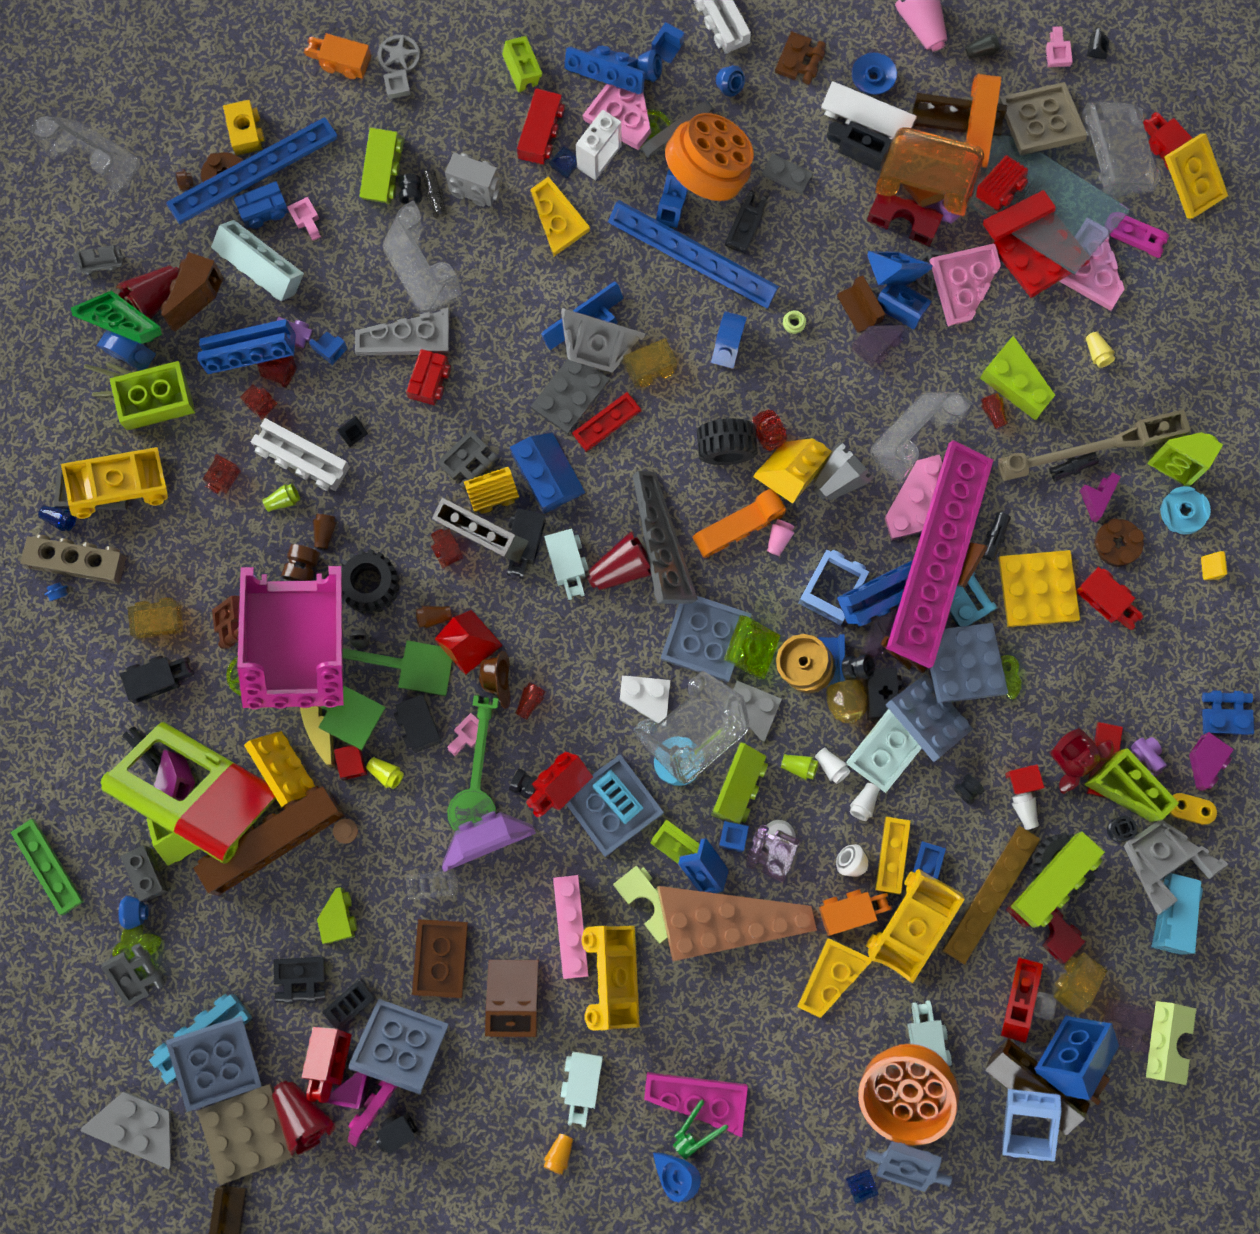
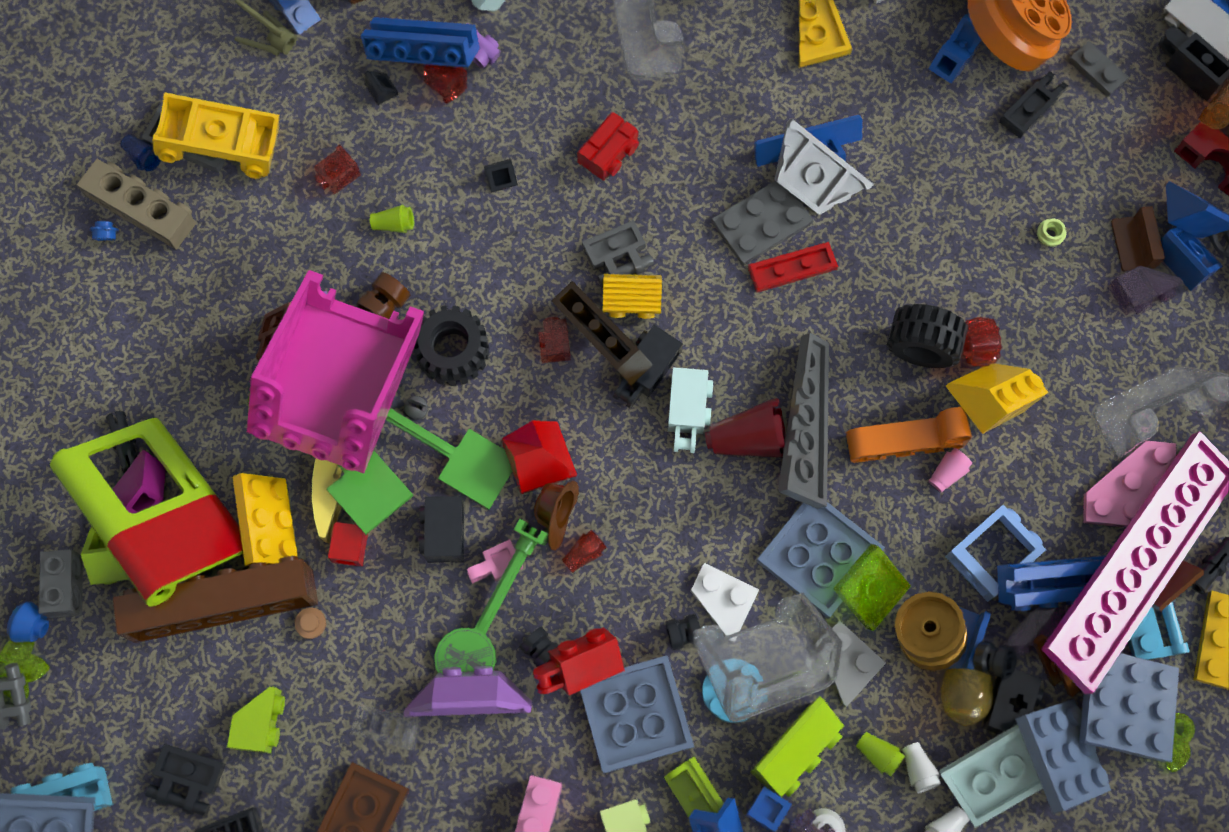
camera: 20 degrees right, 5 degrees down
(152, 396) = (296, 59): lime slope -> none
(154, 678) = (168, 365): black brick -> none
(155, 618) = (197, 300): clear yellow brick -> none
(227, 393) = (380, 86): none -> black slope
(258, 401) = (410, 106): clear red brick -> none
(300, 455) = (432, 180): white brick -> none
(323, 530) = (424, 271): reddish brown cone -> none
(329, 347) = (511, 77): blue panel -> none
(385, 772) = (384, 573): neon yellow cone -> none
(406, 336) = (601, 94): light grey wing -> none
(432, 615) = (508, 411): reddish brown cone -> none
(546, 471) = (703, 296): blue slope -> none
(611, 802) = (636, 680): medium azure slope -> none
(620, 733) = (677, 633): none -> black wheel
(650, 363) = (867, 219): clear yellow brick -> none
(693, 254) = (961, 118): blue plate -> none
(728, 339) = (967, 224): blue brick -> none
(840, 474) = (1050, 422): dark grey cone -> none

